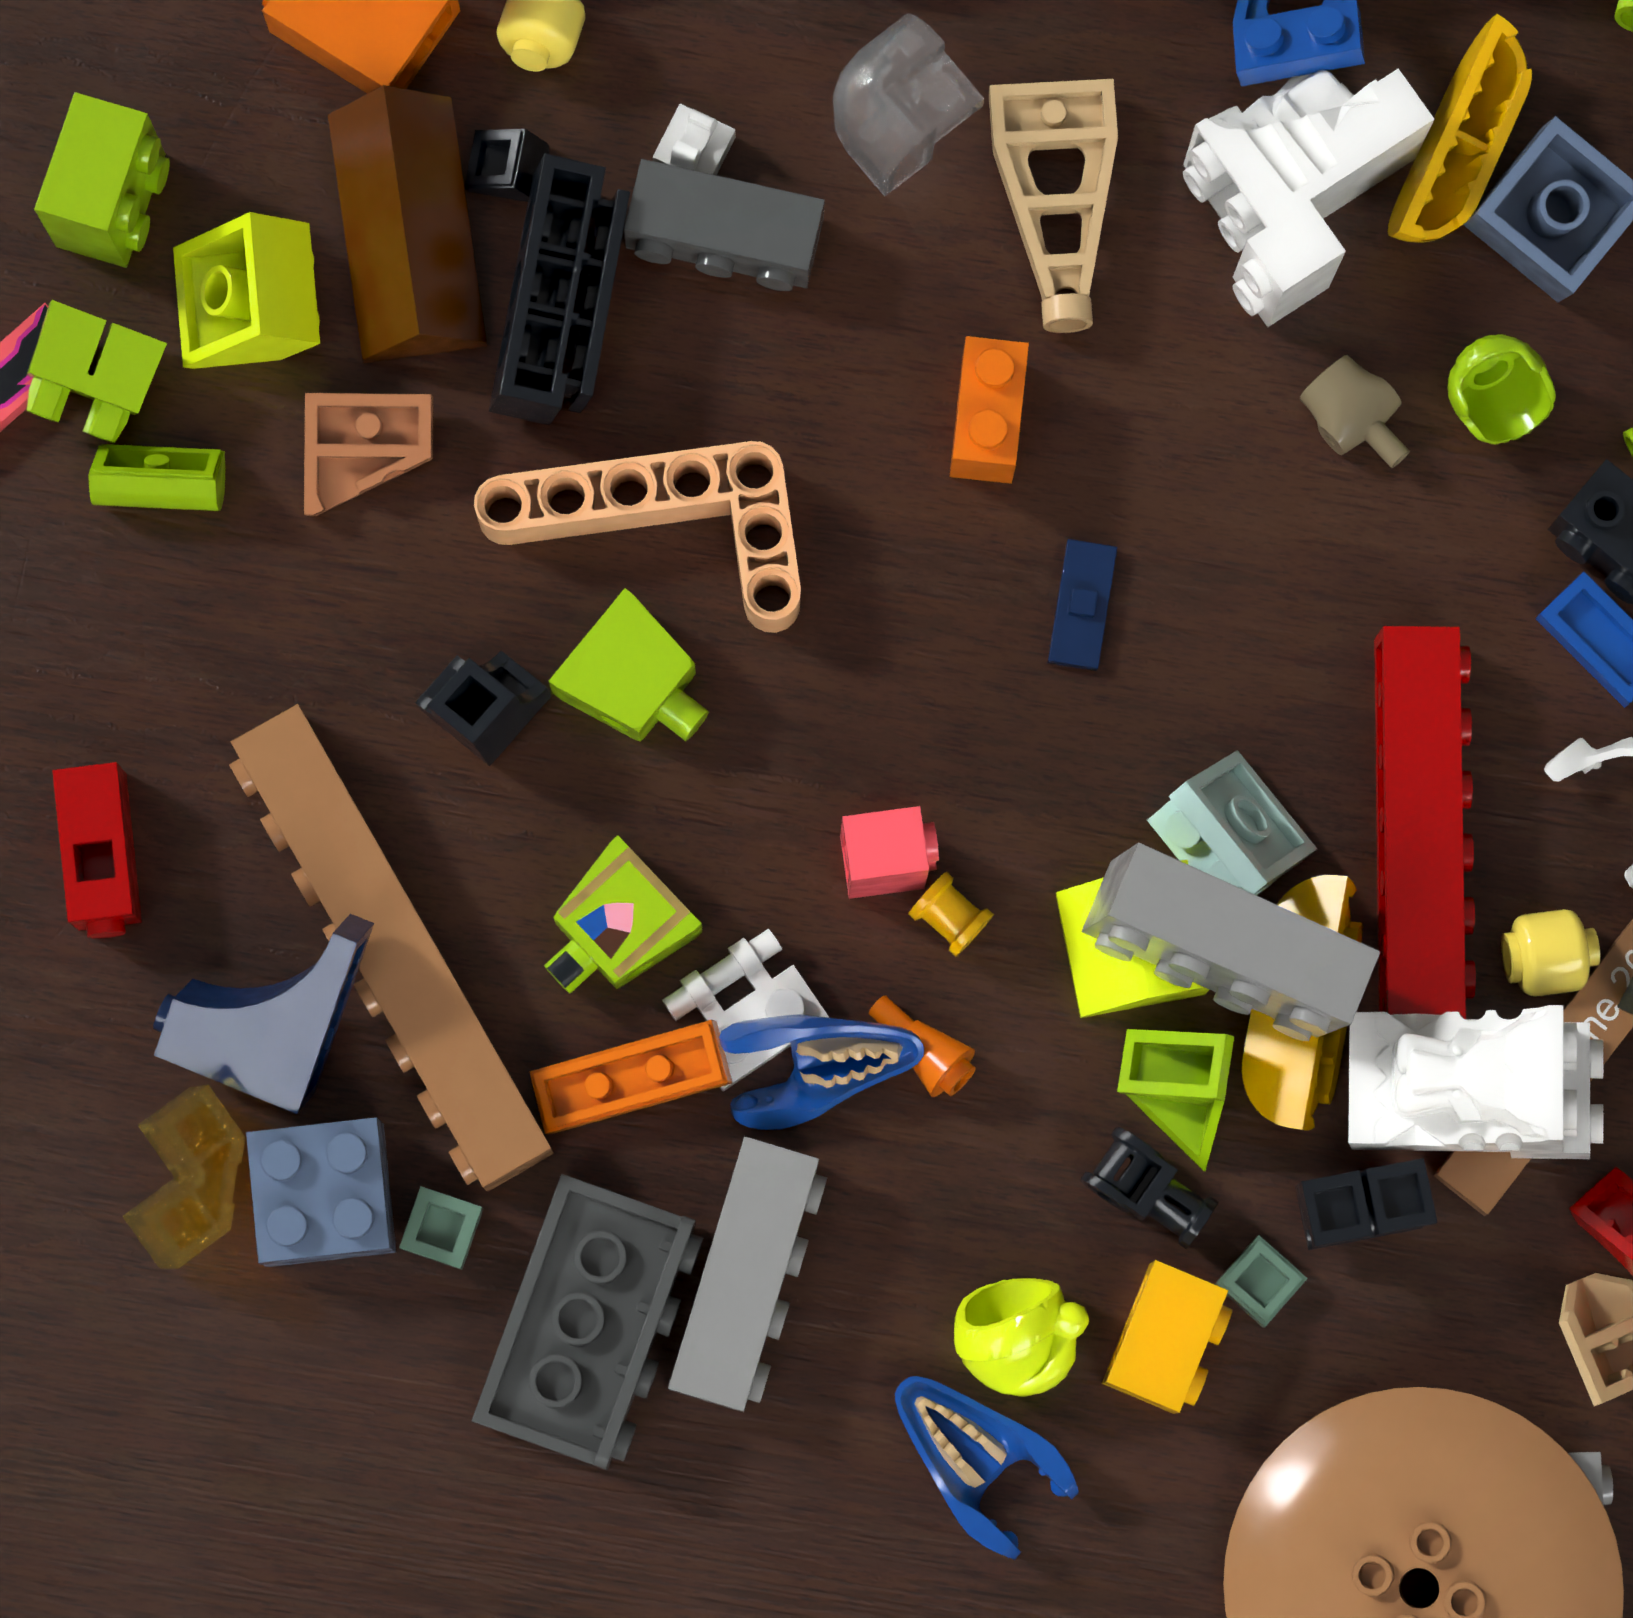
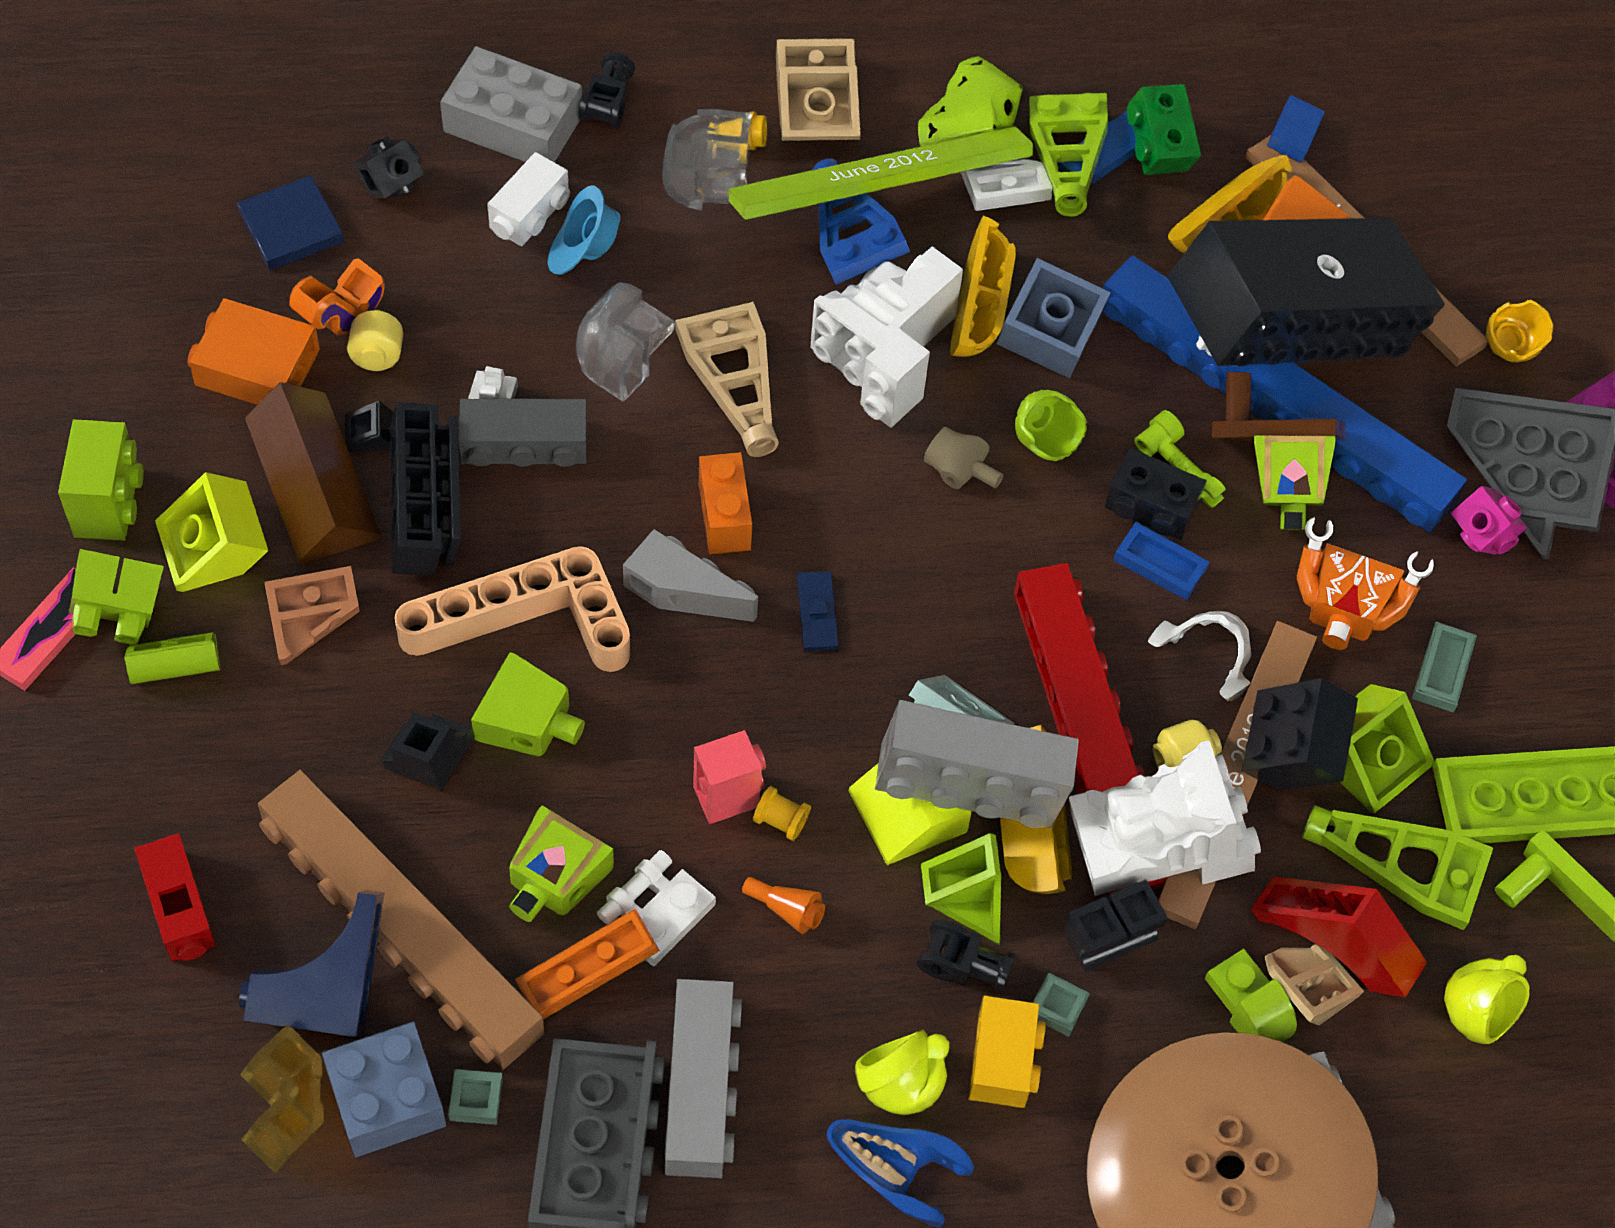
camera: 15 degrees left, 20 degrees down
(830, 1064) = (724, 924): blue animal -> none
(891, 518) = (680, 581): none -> light grey slope
(1529, 1352) = (1254, 1001): none -> lime brick

